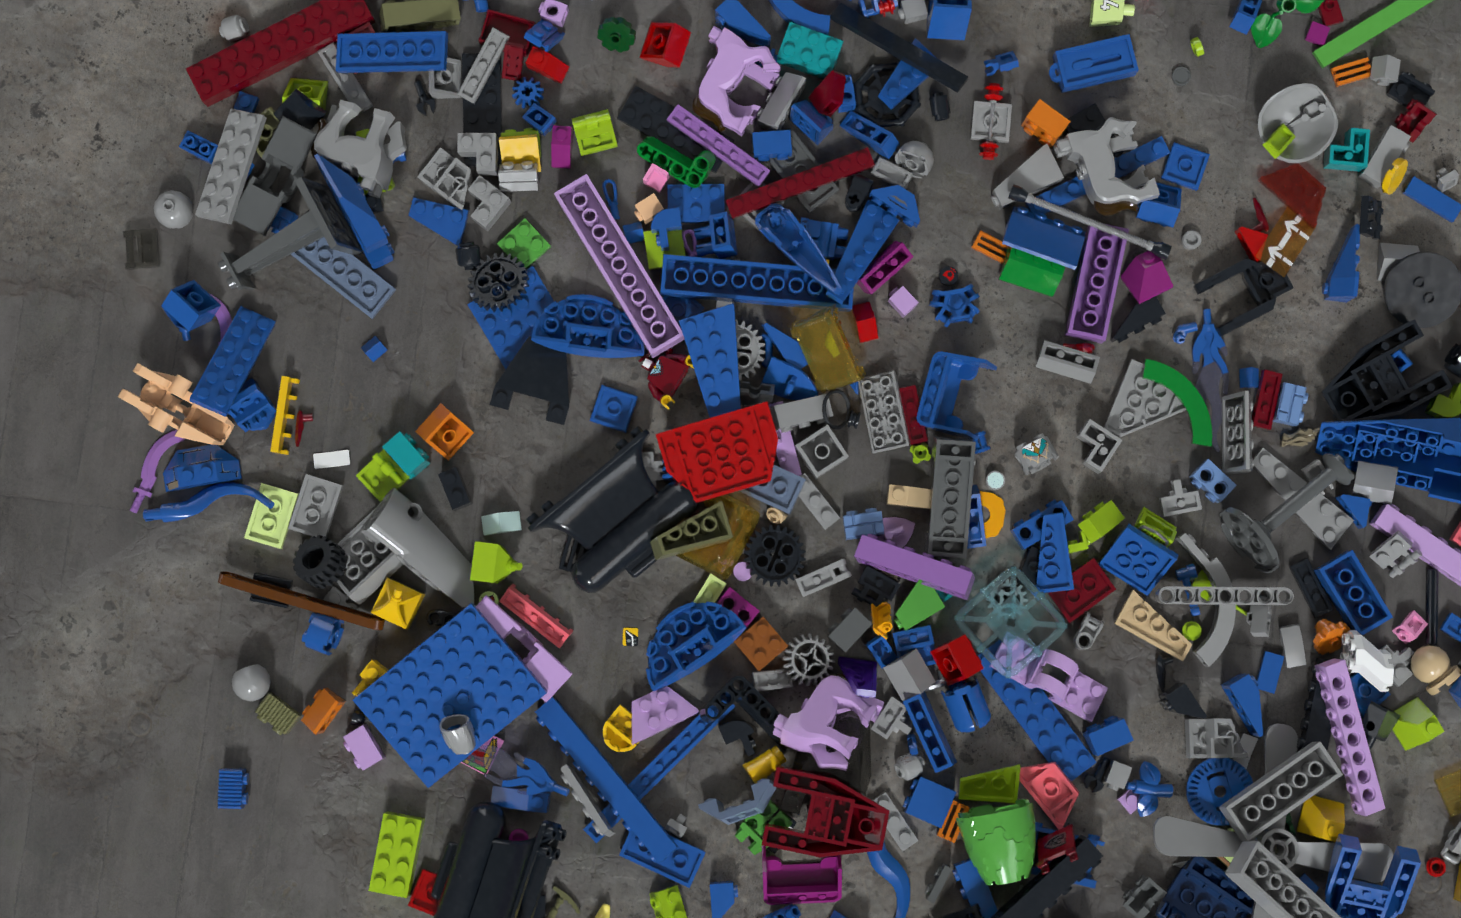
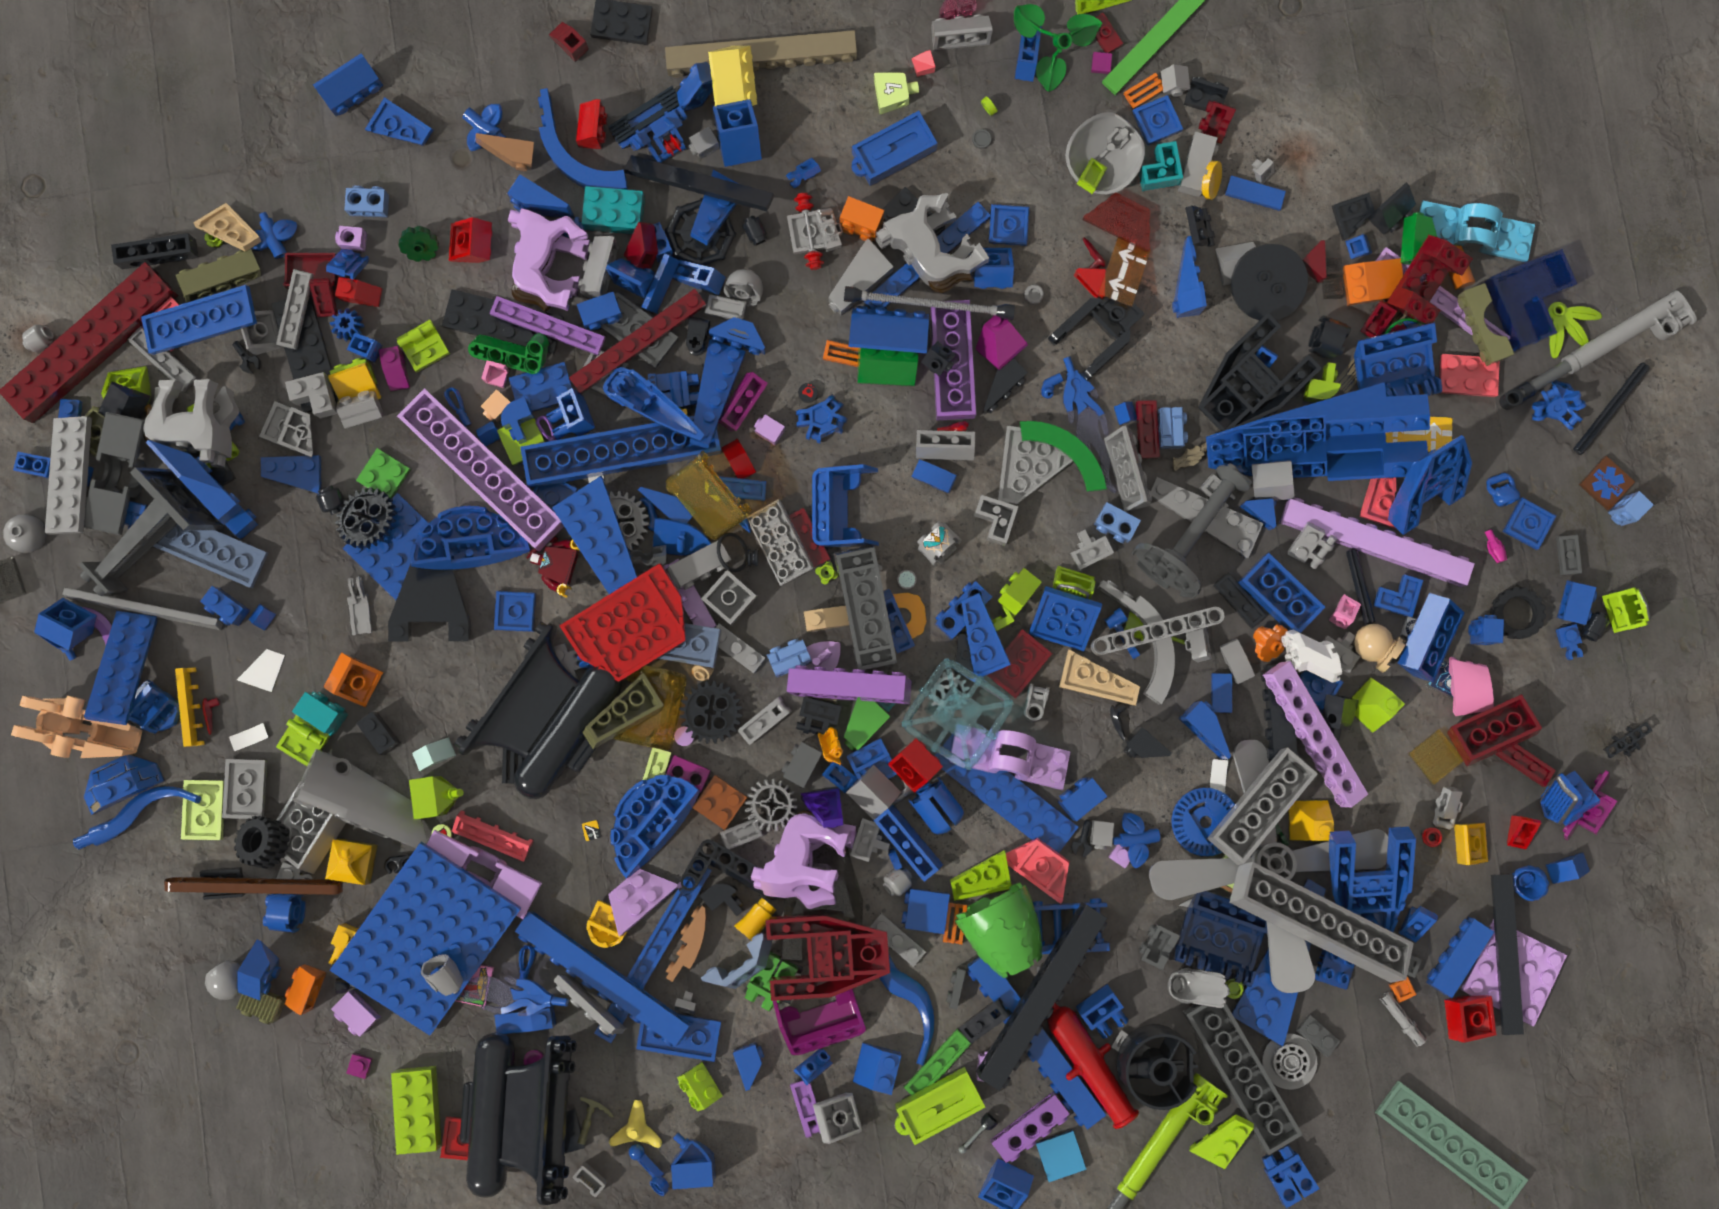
camera: 25 degrees left, 0 degrees up
(150, 465) = (69, 795): medium lavender sword -> none
(232, 788) = (235, 1090): blue brick -> none
(265, 310) = (141, 608): none -> light grey tile
(284, 682) = (257, 971): none -> blue slope
(344, 330) = (224, 605): none -> blue brick
(353, 798) = (359, 1065): none -> magenta plate
(362, 400) = (263, 670): none -> white sticker
(467, 366) = (359, 608): none -> light grey arm
(492, 203) = (340, 443): light grey brick -> none
(531, 752) = (525, 971): none -> blue piece
(701, 763) = (693, 936): none -> medium nougat slope
(836, 133) = (660, 283): none -> blue tile
(866, 352) = (746, 488): none -> blue tile
(984, 446) = (882, 542): blue bush -> none
(1010, 125) = (828, 229): none -> light grey piece
(1048, 388) = (934, 476): none -> blue slope
(1056, 845) = (1058, 920): dark red flag -> none
(1085, 278) = (939, 359): none -> black brick
(1191, 630) = (1136, 673): lime plate -> none
(1212, 739) = (1184, 773): light grey slope -> none
(1357, 103) = (1157, 120): none -> blue plate

